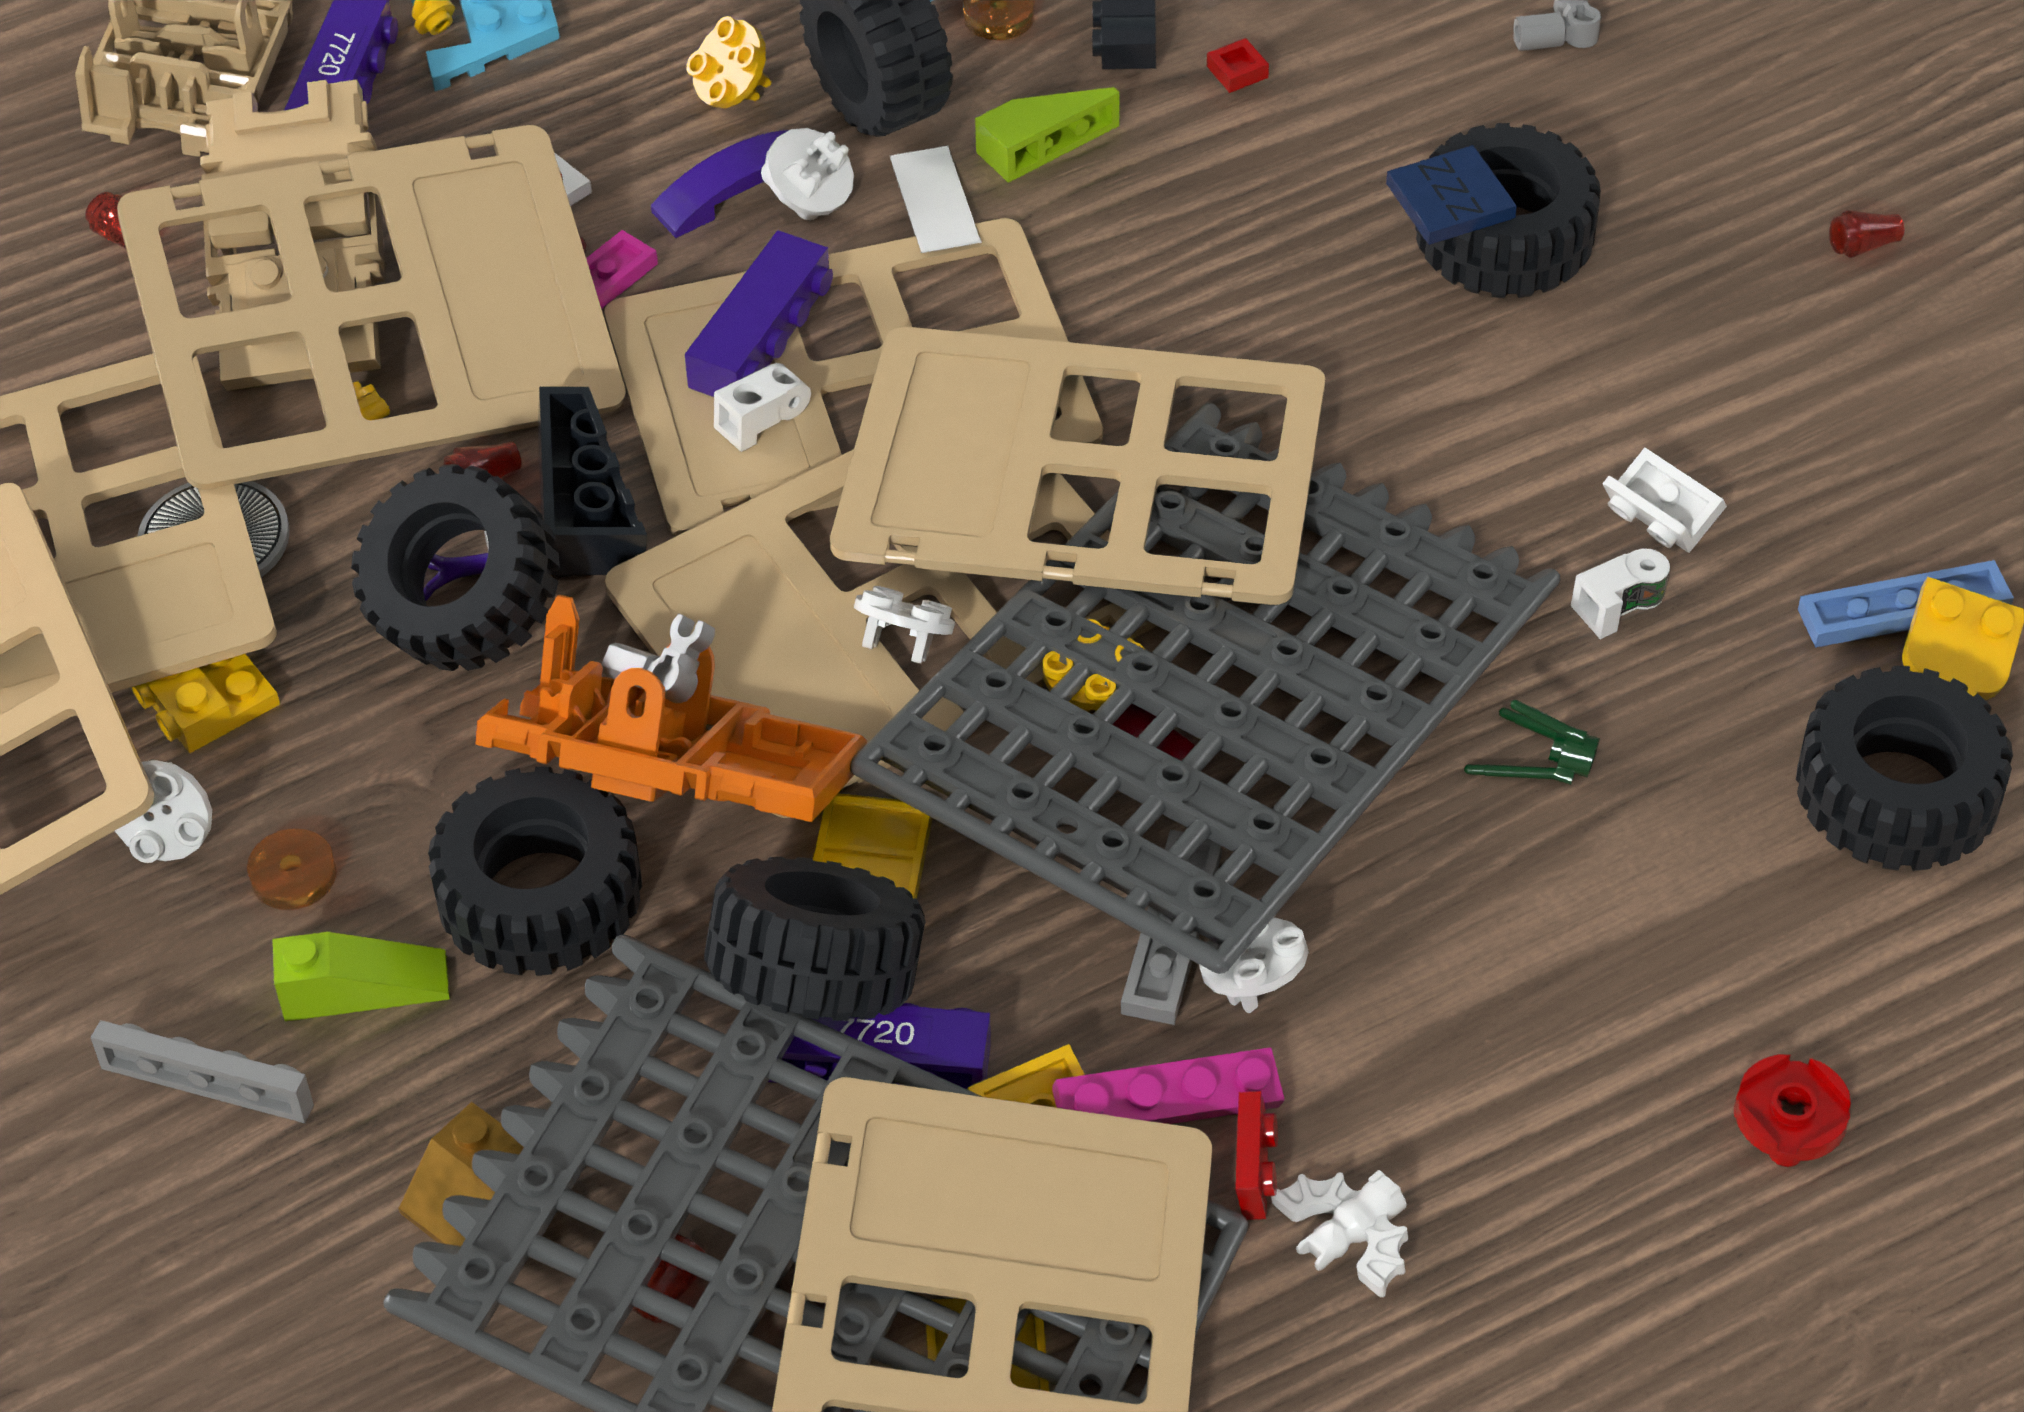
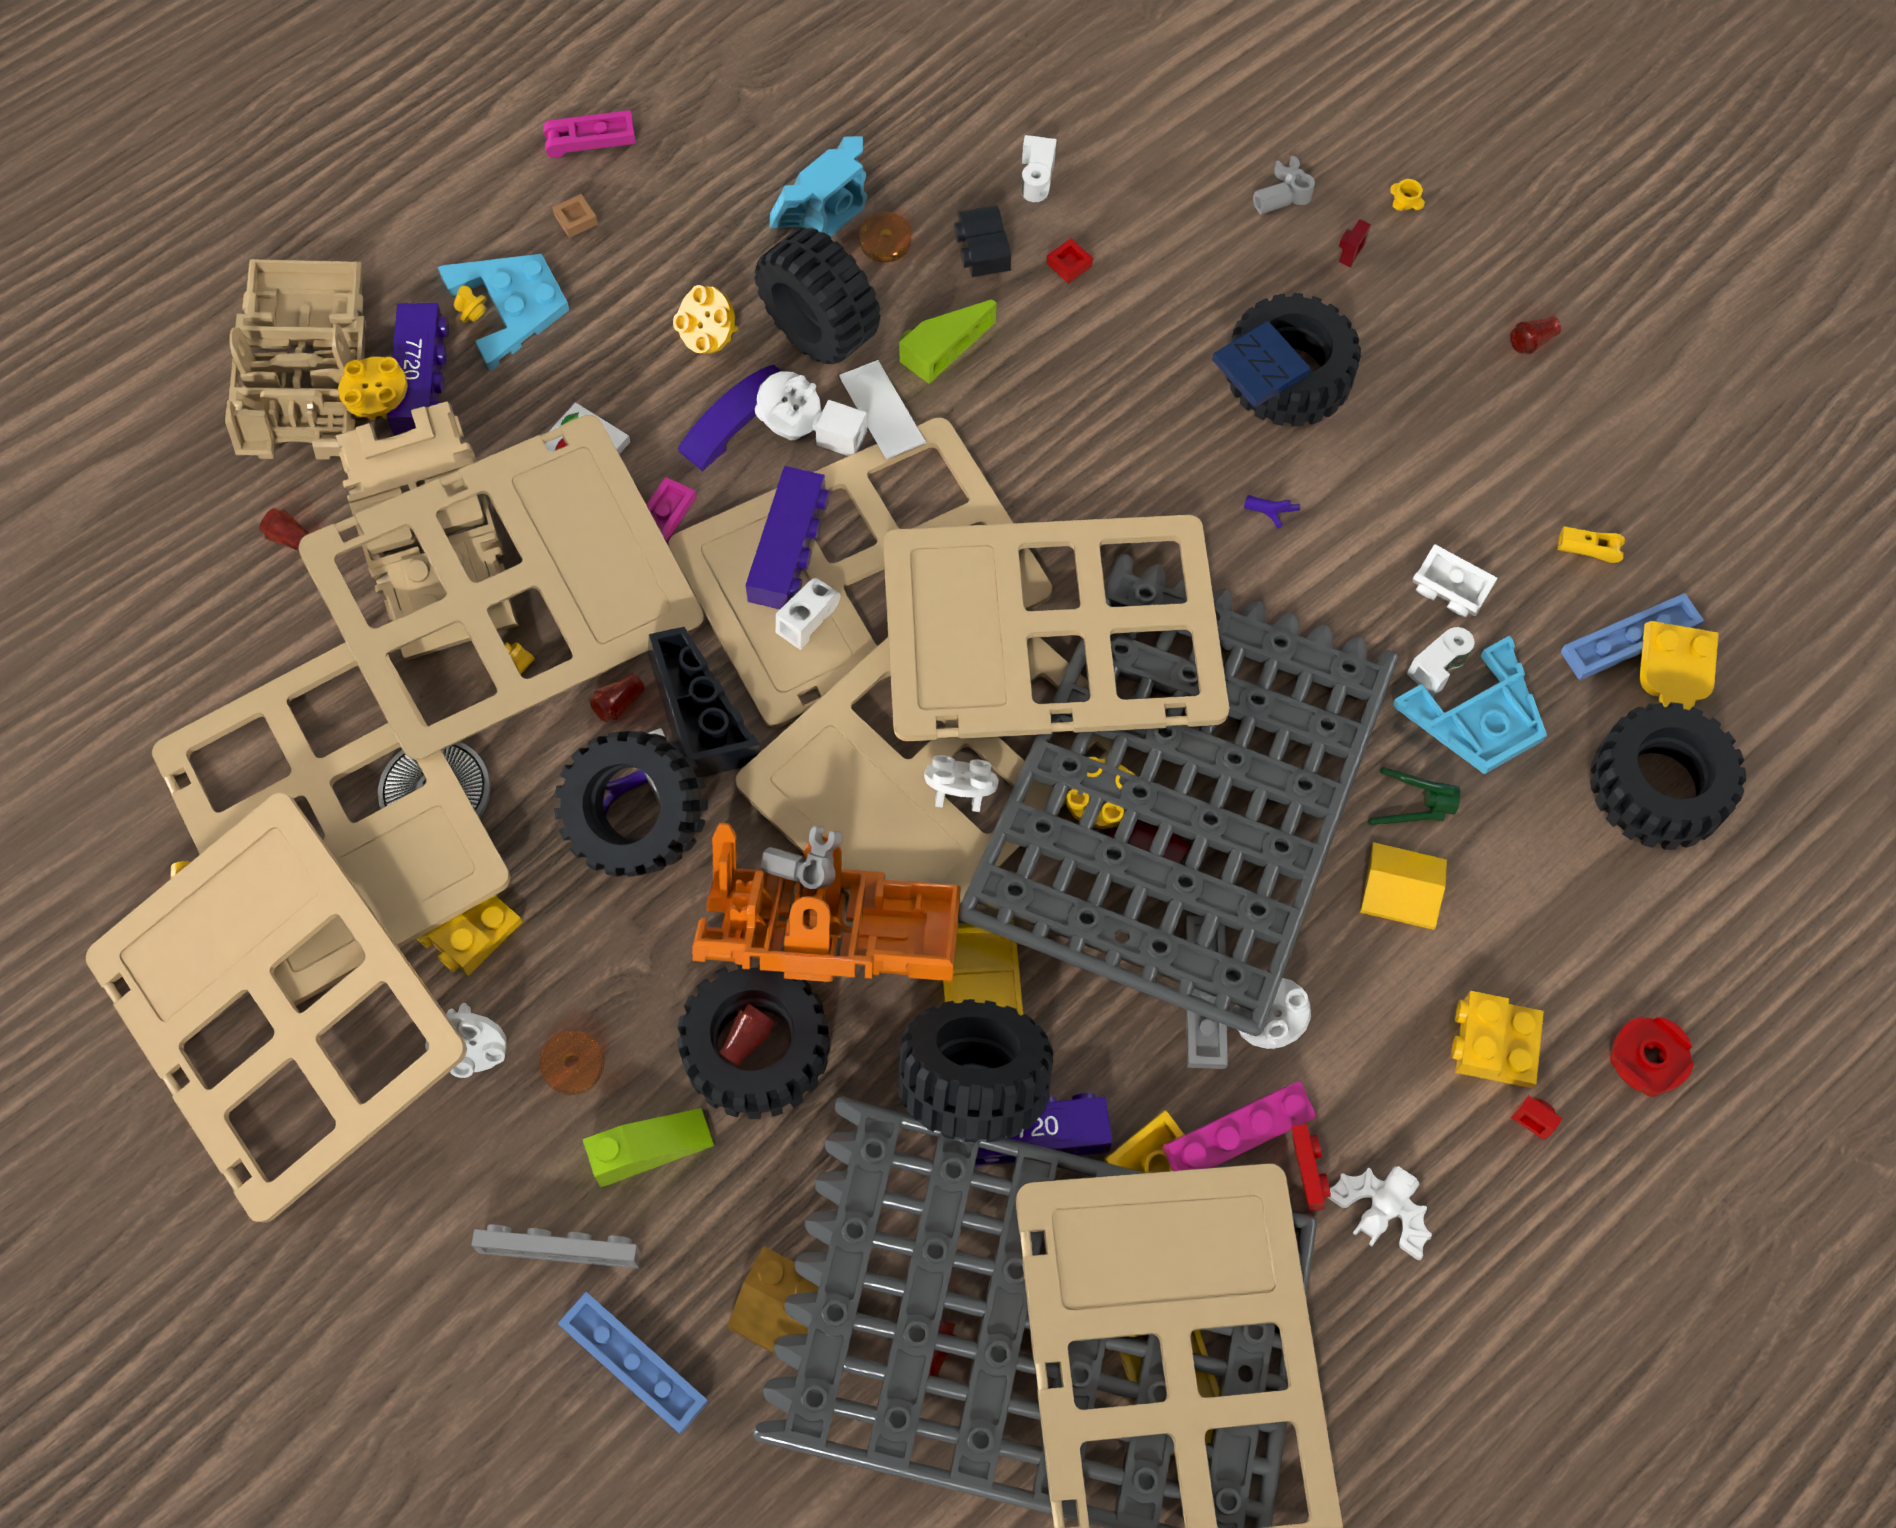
camera: 15 degrees left, 15 degrees up
(261, 1223) = (633, 1363): none -> medium blue plate
(276, 72) = (372, 373): none -> yellow plate
(520, 837) = (747, 1032): none -> clear red cone
(870, 209) = (840, 428): none -> white brick
(1433, 382) = (1270, 508): none -> dark purple bar
(1491, 851) = (1404, 886): none -> yellow slope
(1571, 1052) = (1497, 1040): none -> yellow plate
(1599, 1151) = (1537, 1117): none -> red plate
(1637, 94) = (1353, 242): none -> dark red plate
(1663, 678) = (1491, 724): none -> medium azure wing
(1730, 51) = (1407, 195): none -> yellow plate
(1879, 488) = (1587, 542): none -> yellow bar

